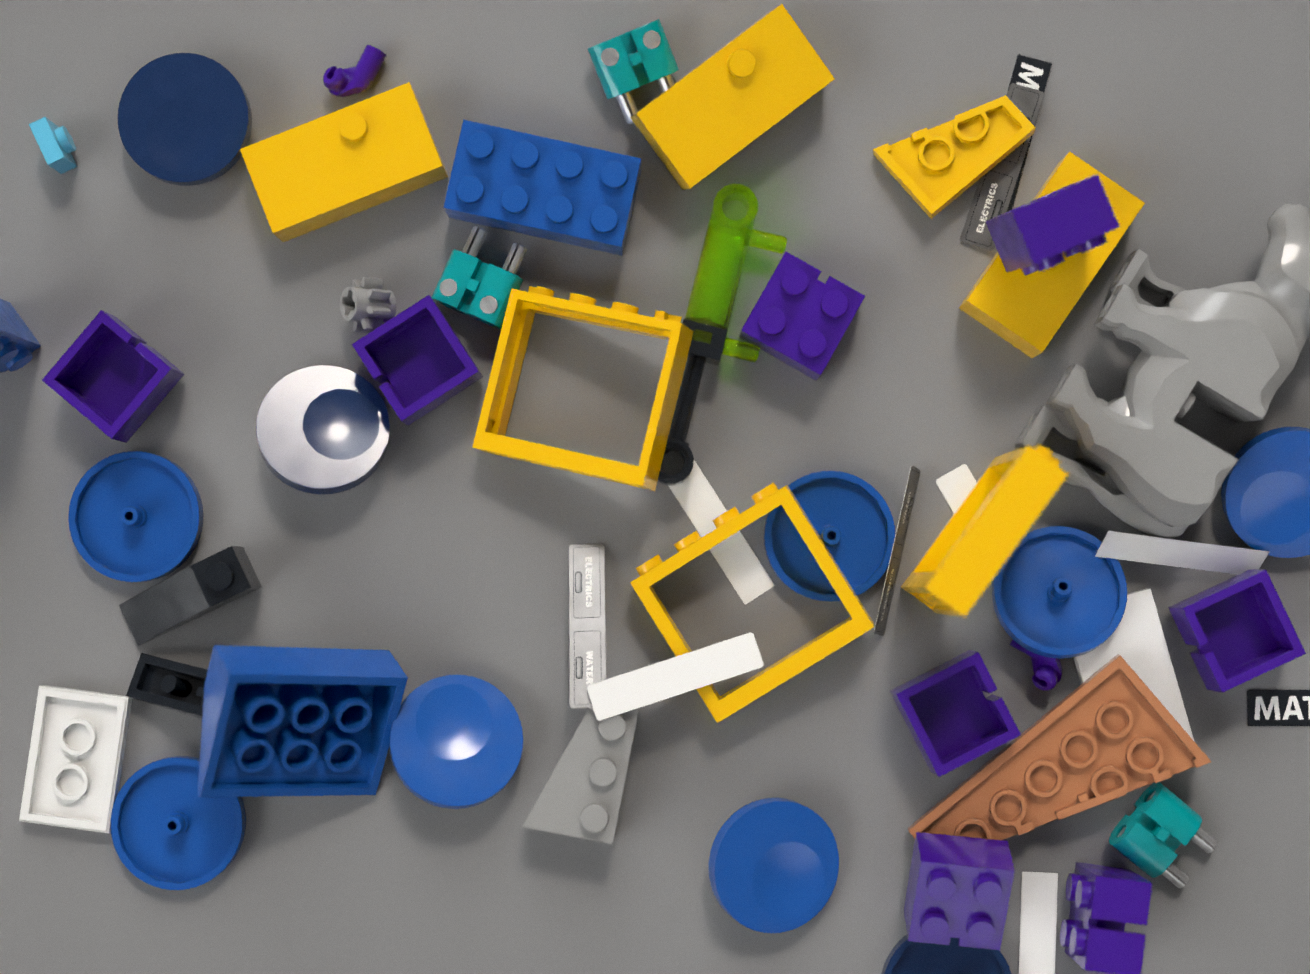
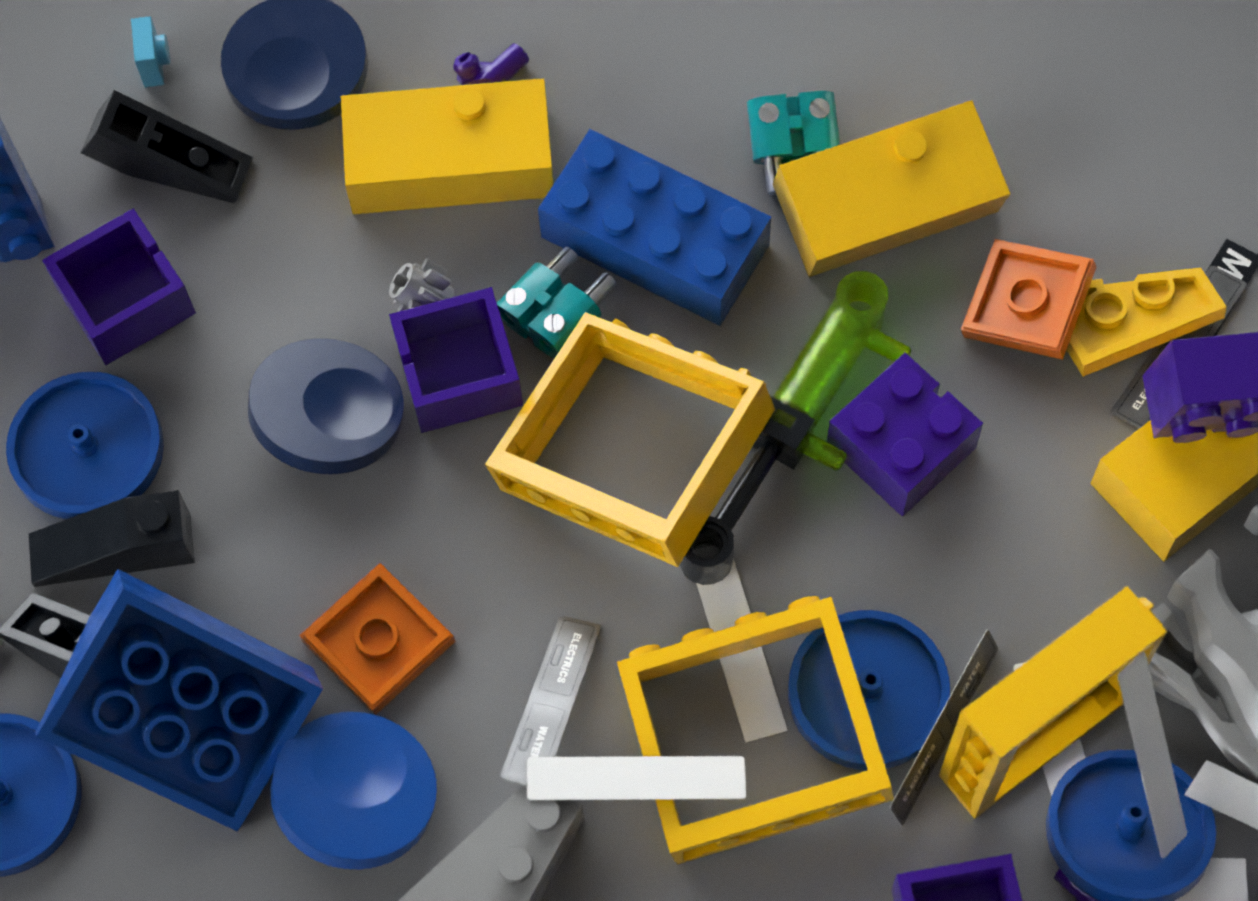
camera: 20 degrees right, 20 degrees down
(104, 236) = (164, 150): none -> black slope
(431, 609) = (377, 638): none -> orange tile
(871, 163) = (1028, 298): none -> orange tile
(1071, 552) = (1152, 754): none -> white sticker

